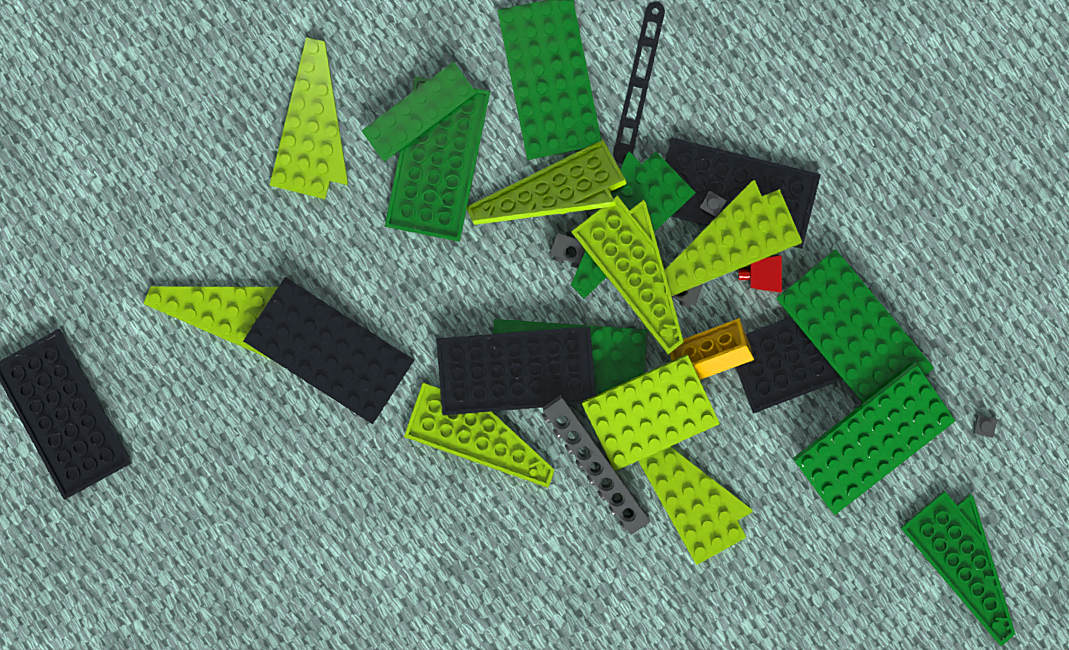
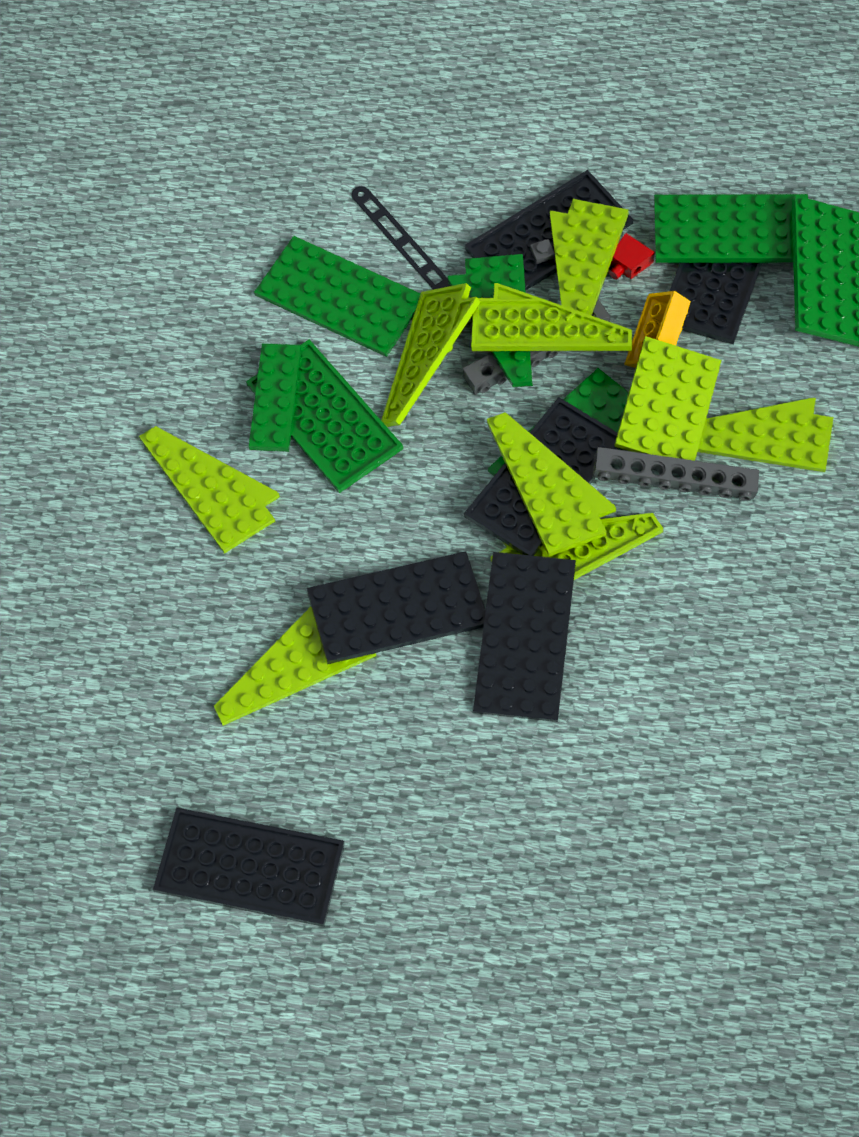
camera: 45 degrees left, 25 degrees down
(381, 459) = (524, 637): none -> black plate
(504, 393) = (556, 497): none -> lime wing

